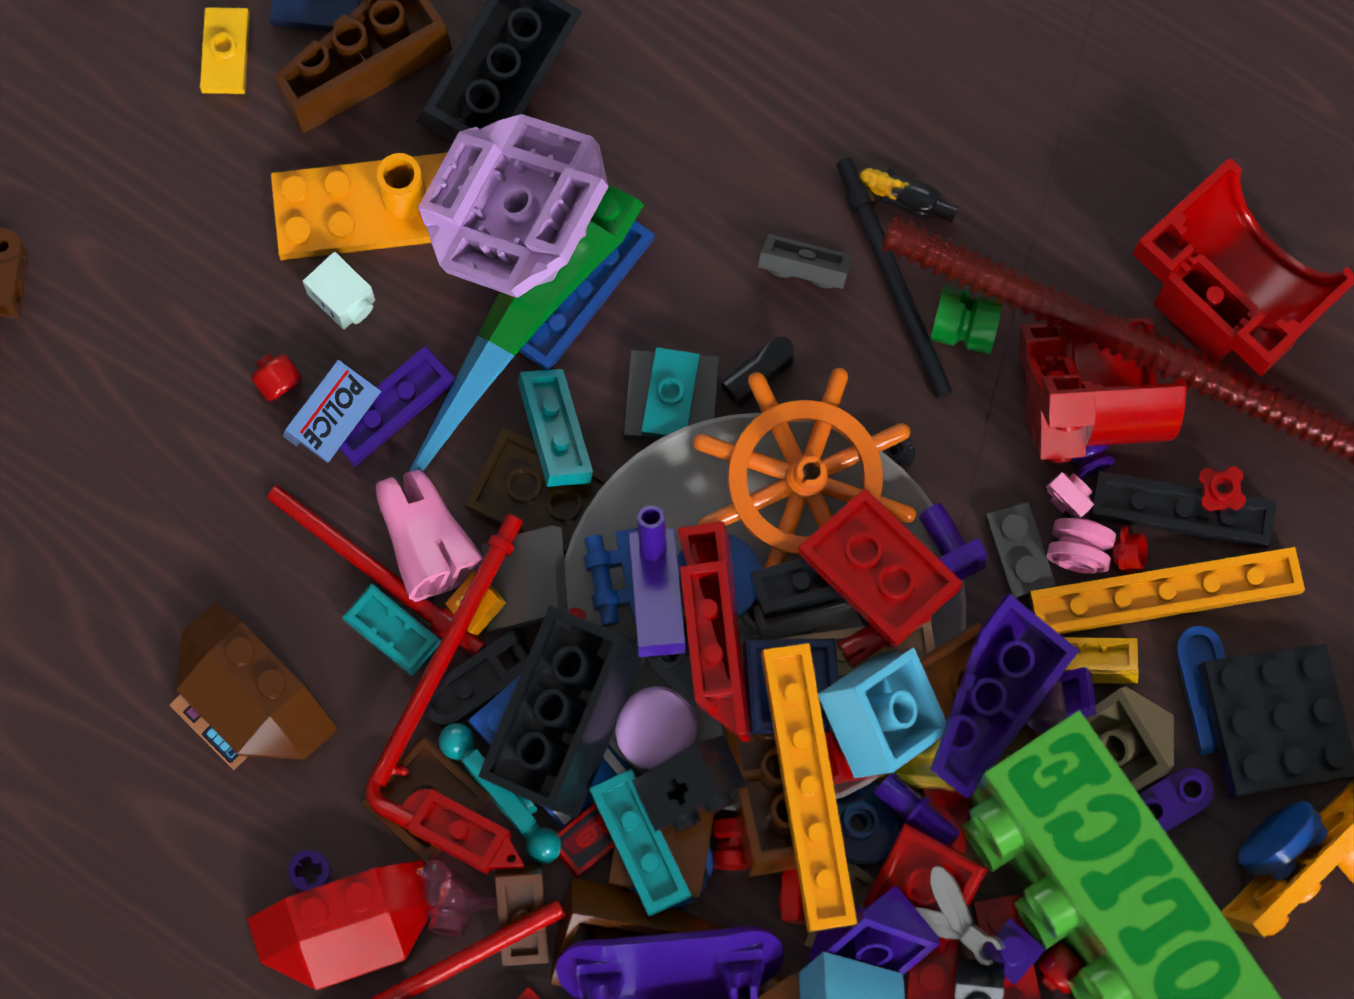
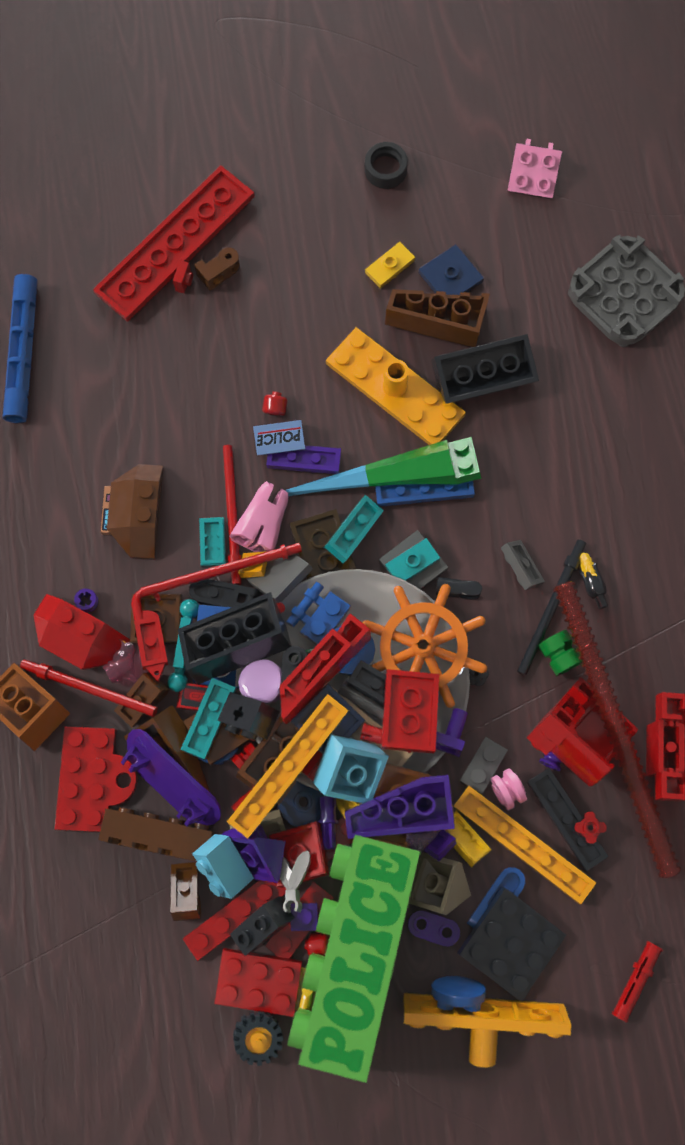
camera: 50 degrees right, 0 degrees up
(340, 291) = (332, 396): light aqua brick -> none
(513, 202) = (428, 425): lavender piece -> none
(656, 585) = (316, 626): dark purple piece -> none
(1070, 494) = (526, 764): bright pink plate -> none
(1130, 551) = (527, 812): red plate -> none

